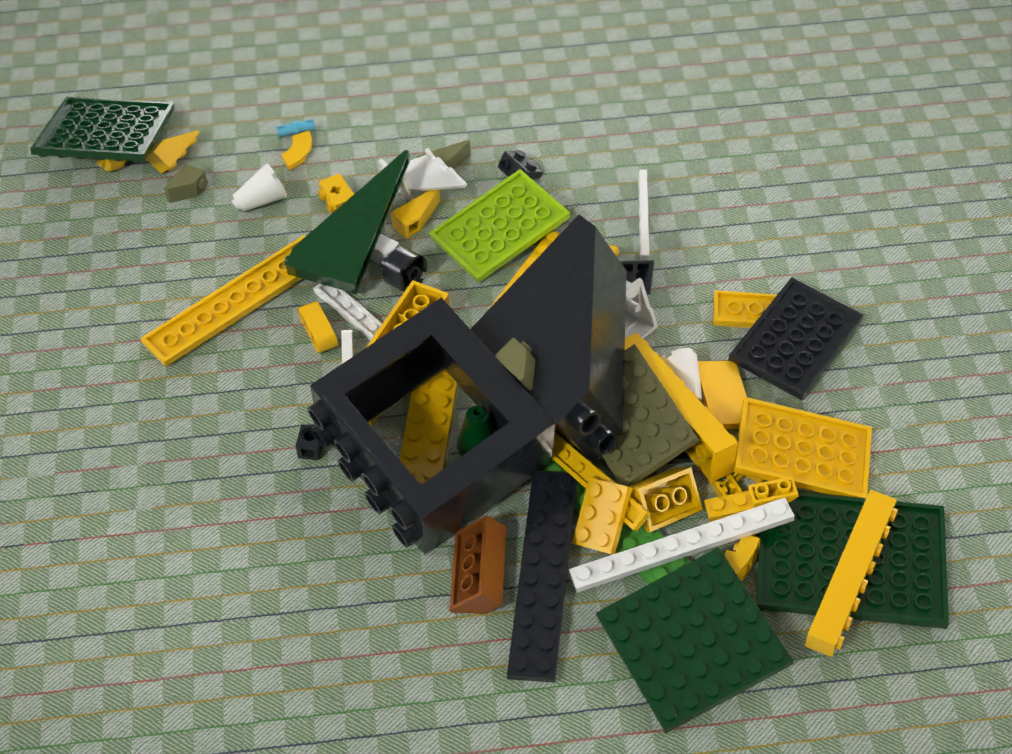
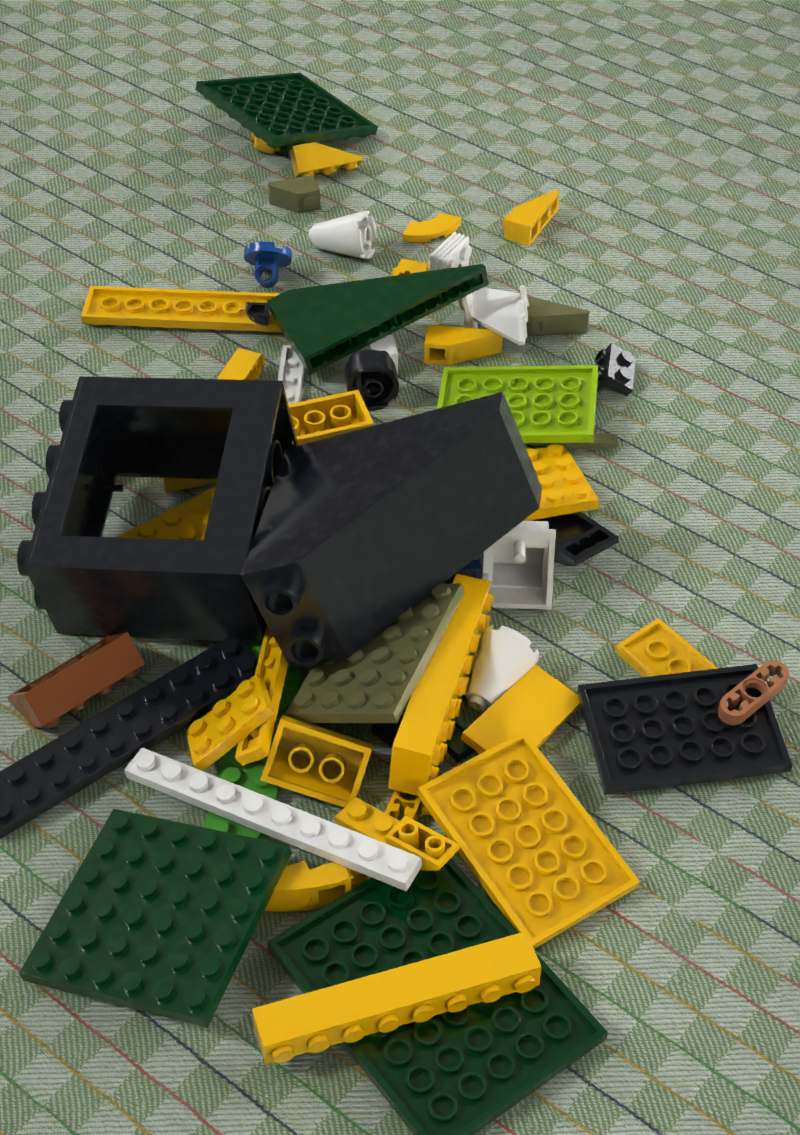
camera: 45 degrees right, 5 degrees down
(234, 239) = (267, 257): none -> blue tile
(277, 277) = (258, 312): none -> black tile
(295, 128) = (453, 208): medium azure pin -> none
(353, 108) = (530, 218): none -> yellow slope
(353, 165) = (451, 253): none -> white brick
(518, 362) = (280, 494): olive slope -> none
(643, 215) = (674, 498): white tile -> none
(806, 299) = (751, 704): none -> nougat beam

